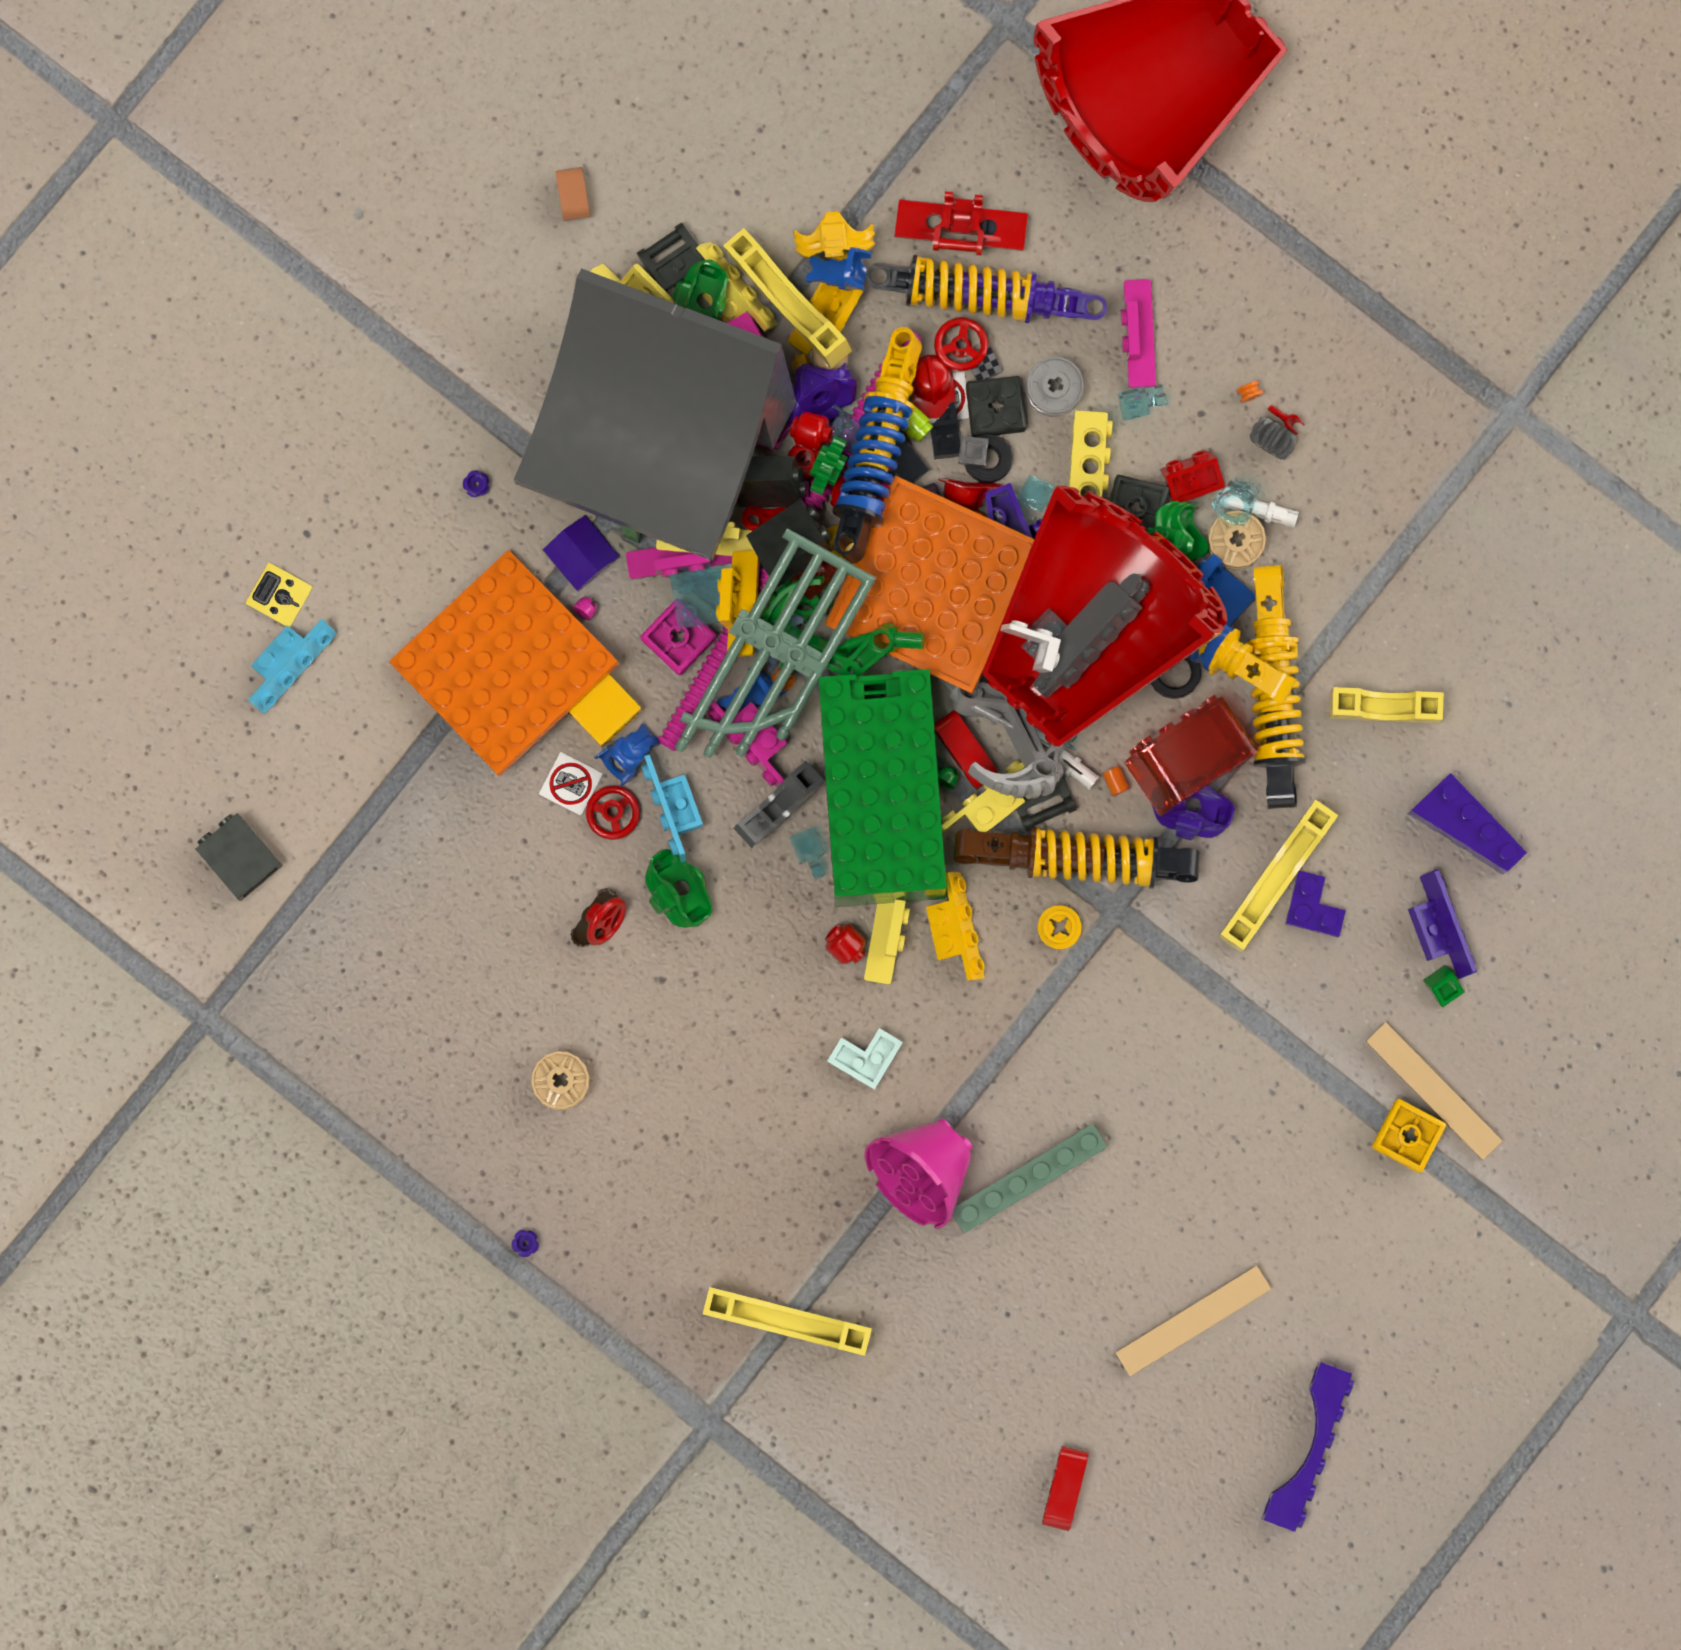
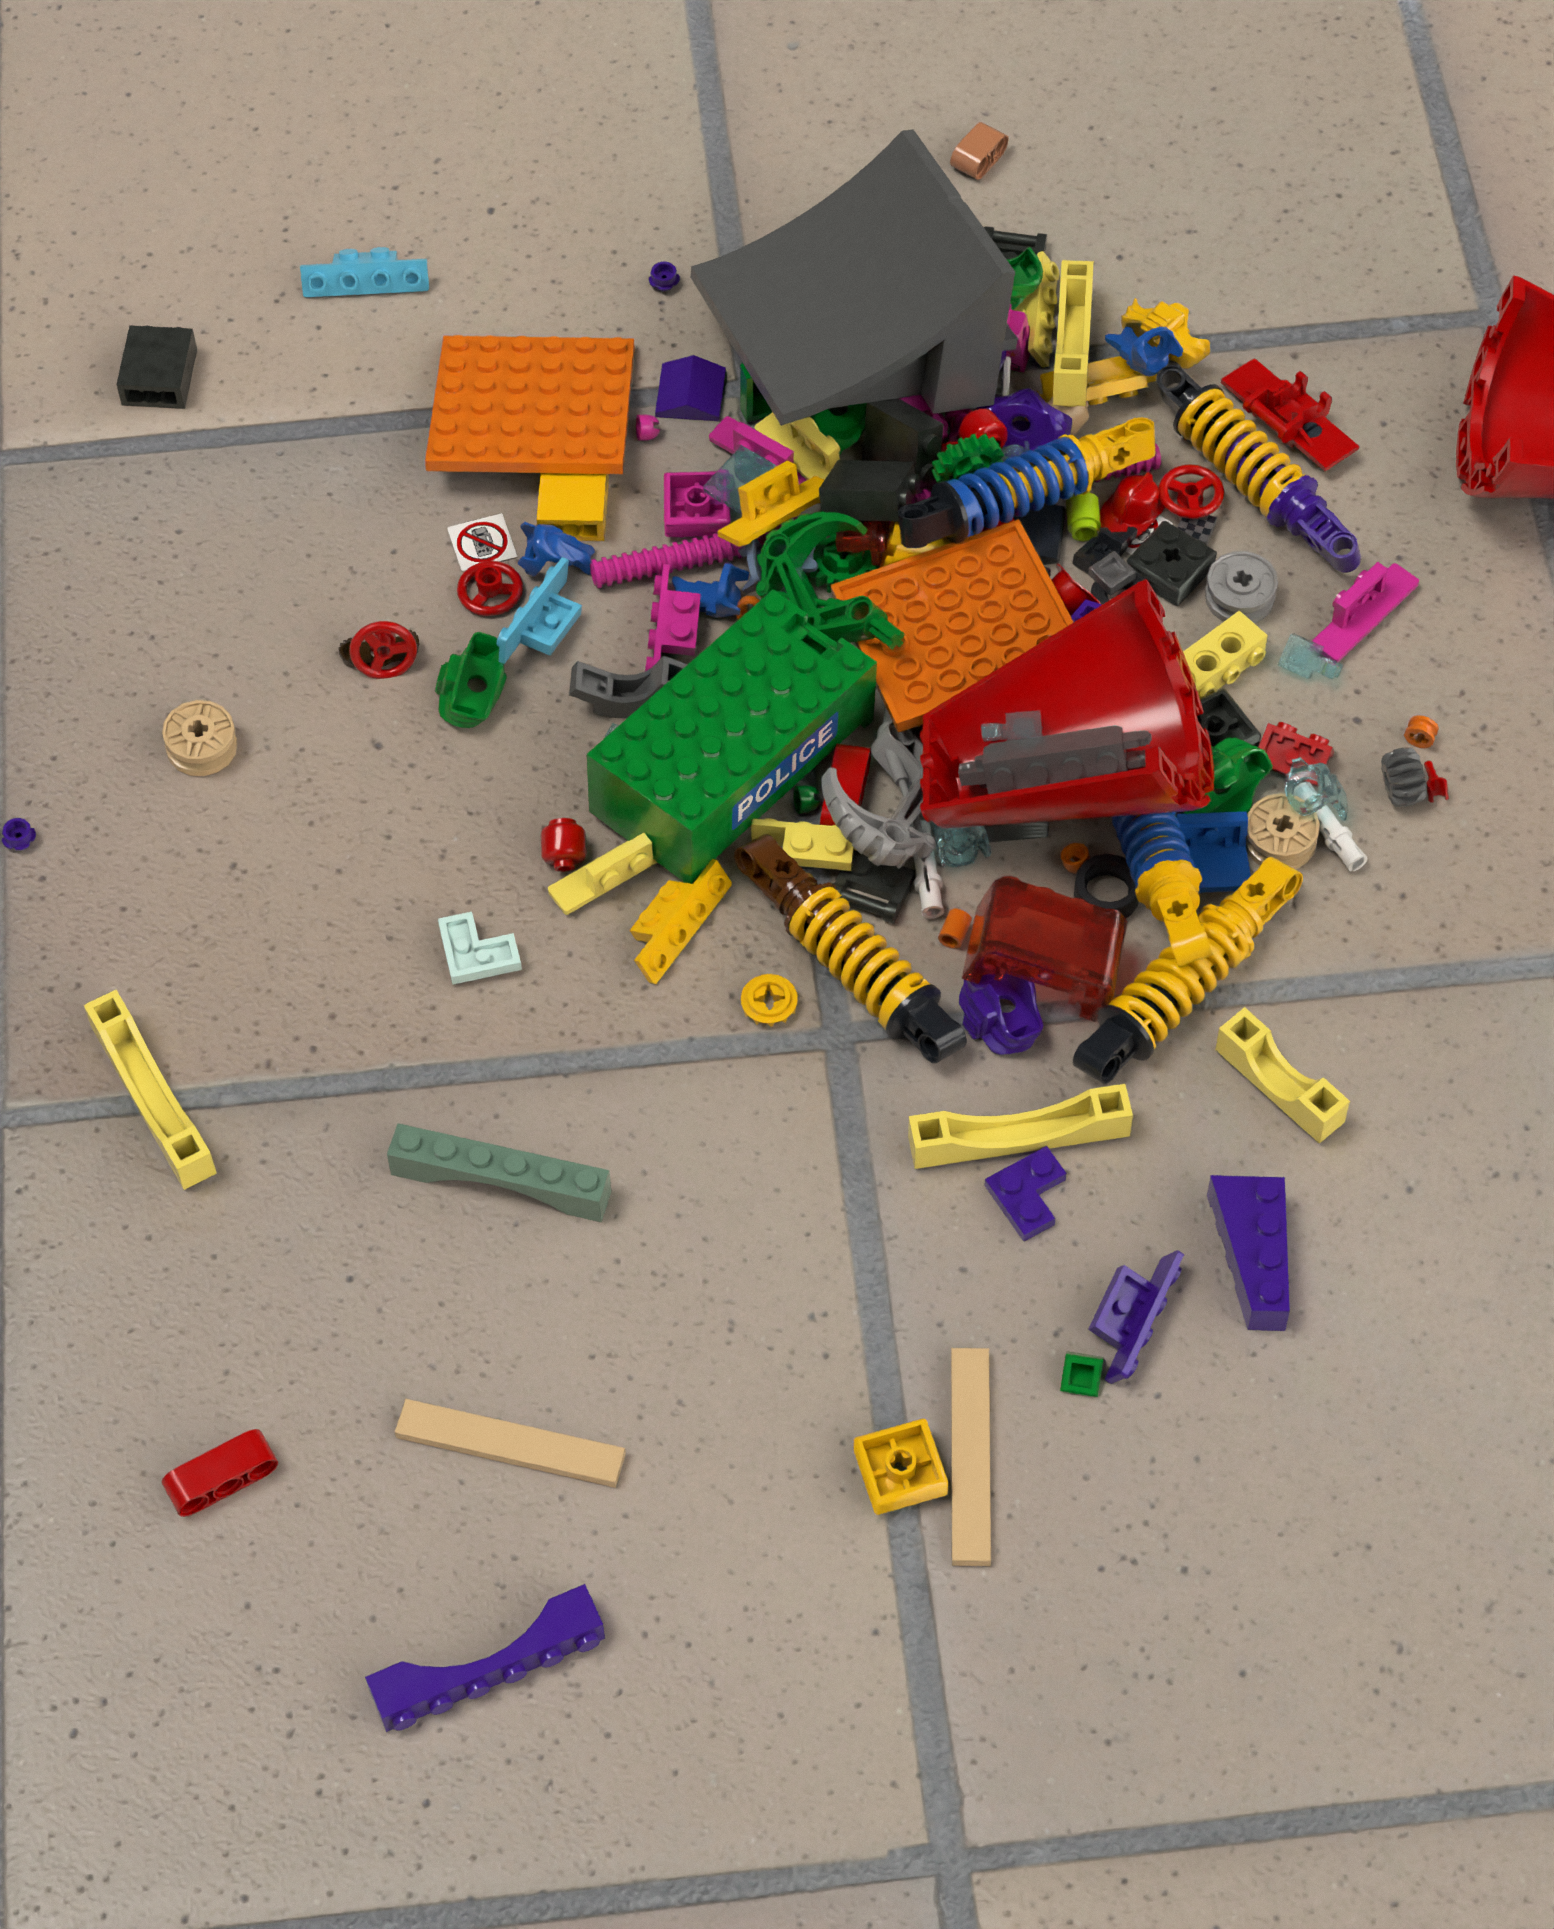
camera: 50 degrees right, 25 degrees down
(279, 595) = (417, 232): light yellow sticker -> none
(780, 645) = (769, 549): sand green piece -> none
(921, 1170) = (416, 1063): dark pink cone -> none
(1047, 653) = (995, 736): white bracket -> none

